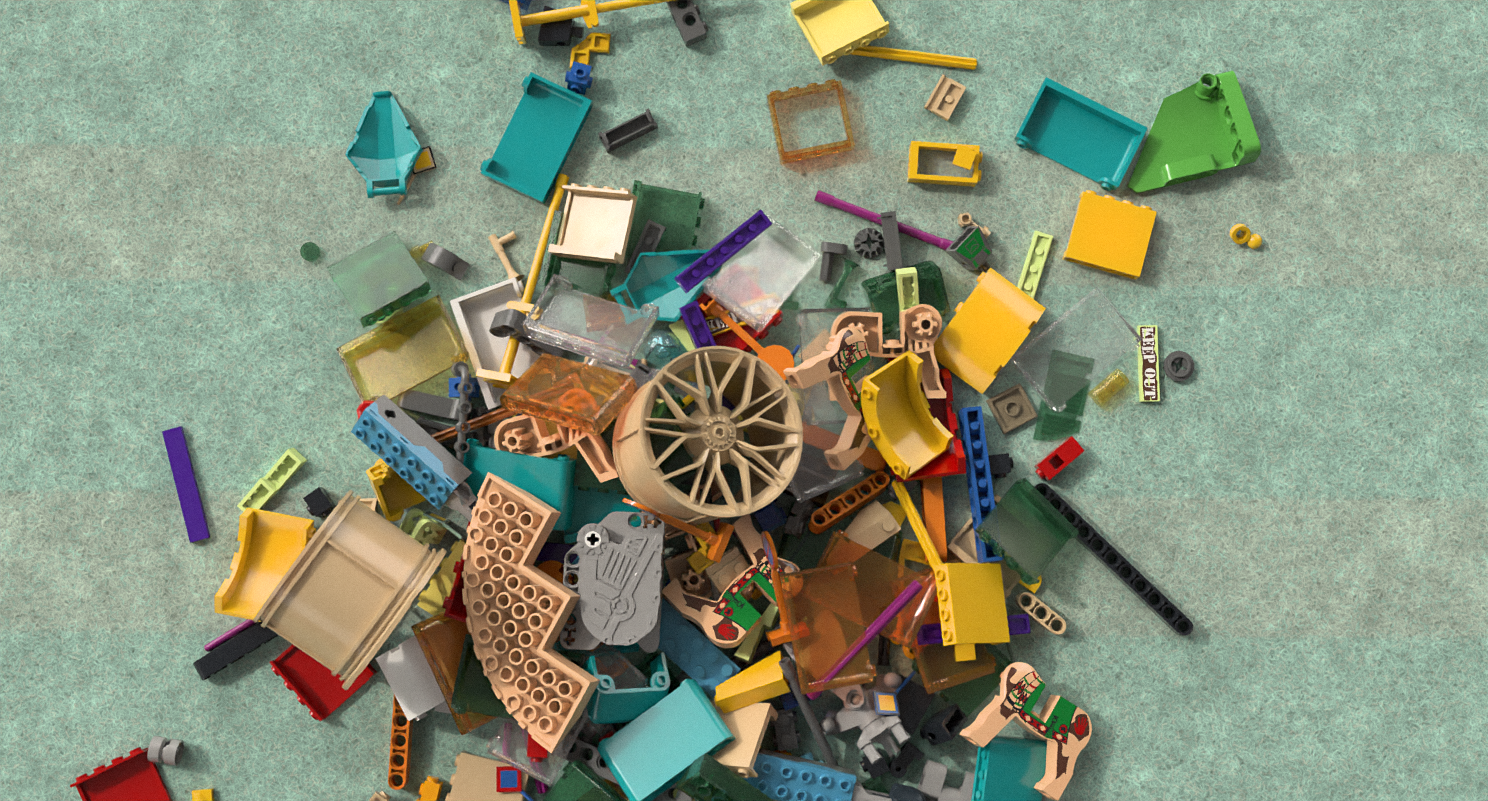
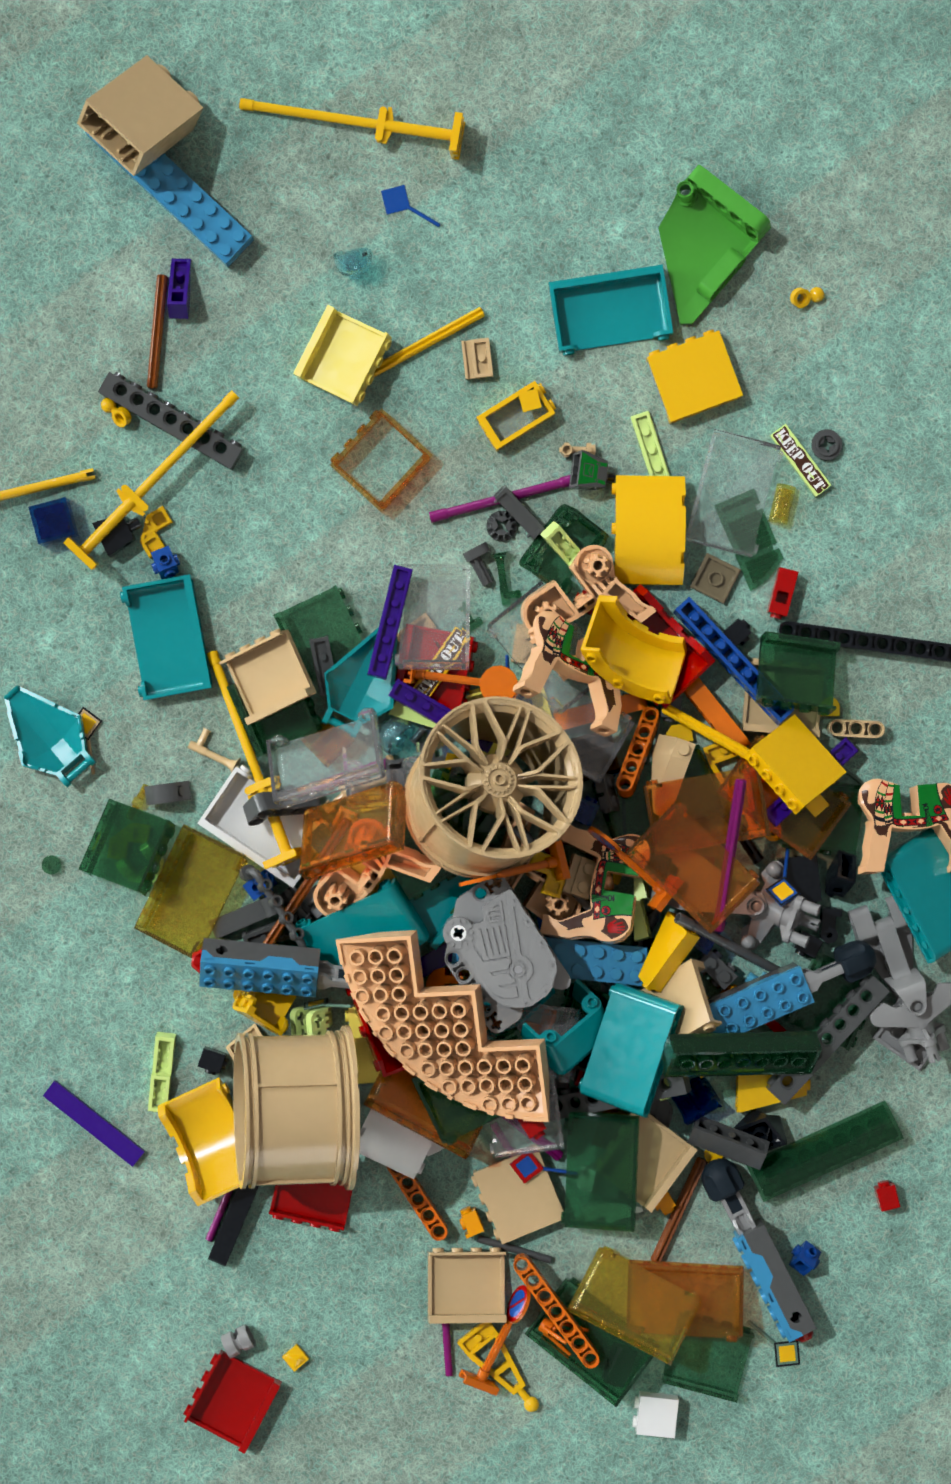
camera: 30 degrees left, 5 degrees up
(628, 131) = (237, 576): dark grey container -> none

